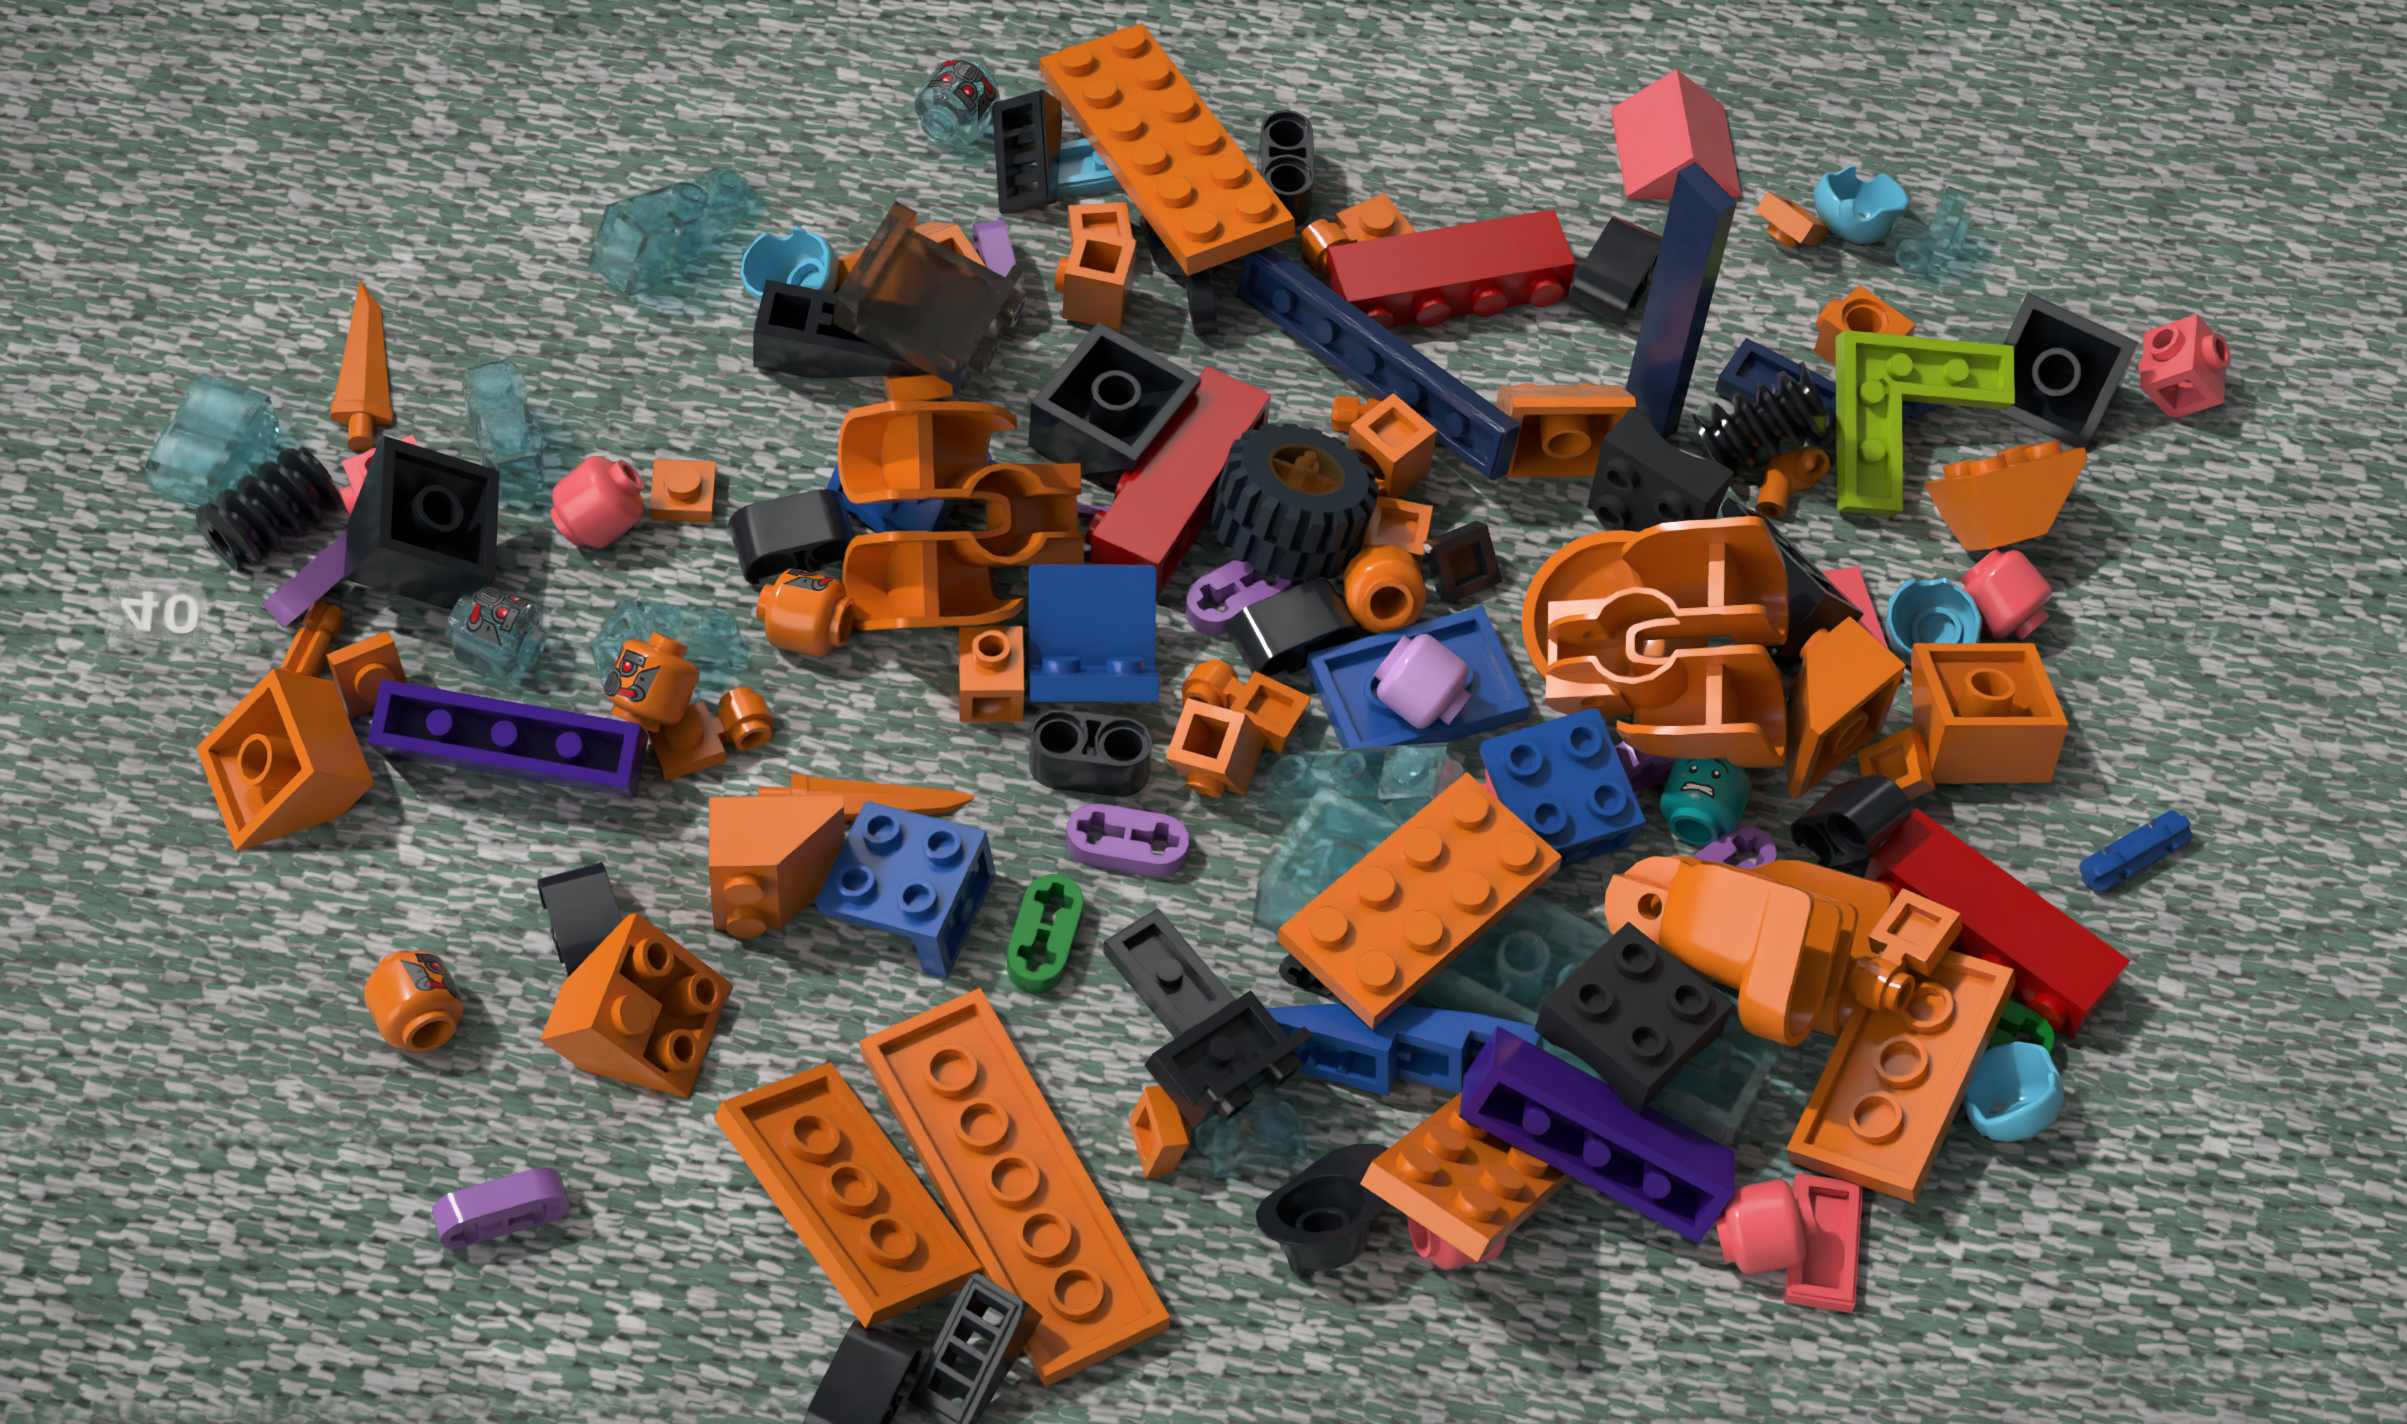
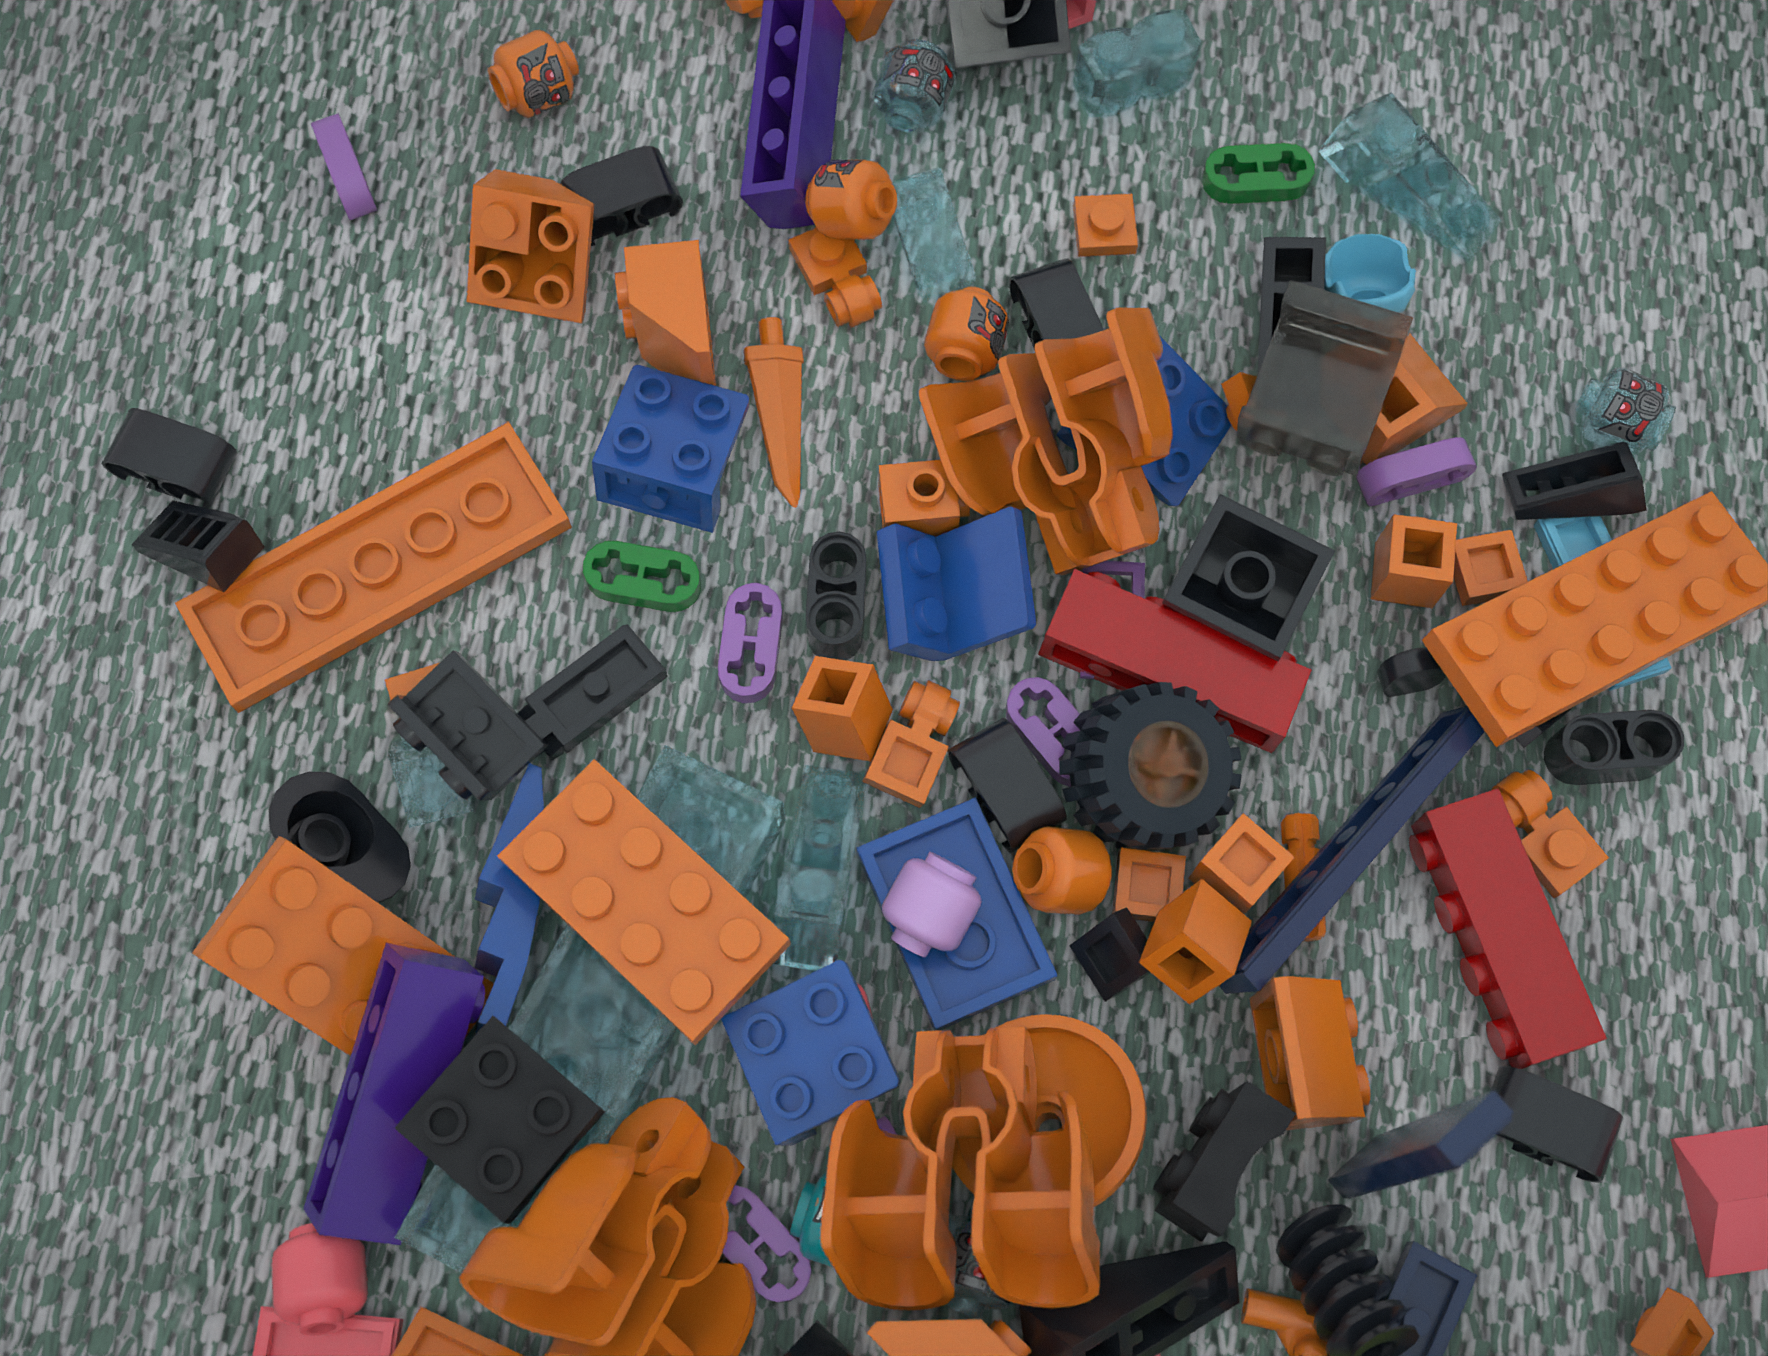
camera: 90 degrees right, 15 degrees up
(598, 502) = (1065, 146): coral head -> none
(631, 352) = (1258, 173): none -> green beam
(847, 1193) = (351, 424): orange plate -> none
(1466, 479) = (1196, 942): none -> orange brick

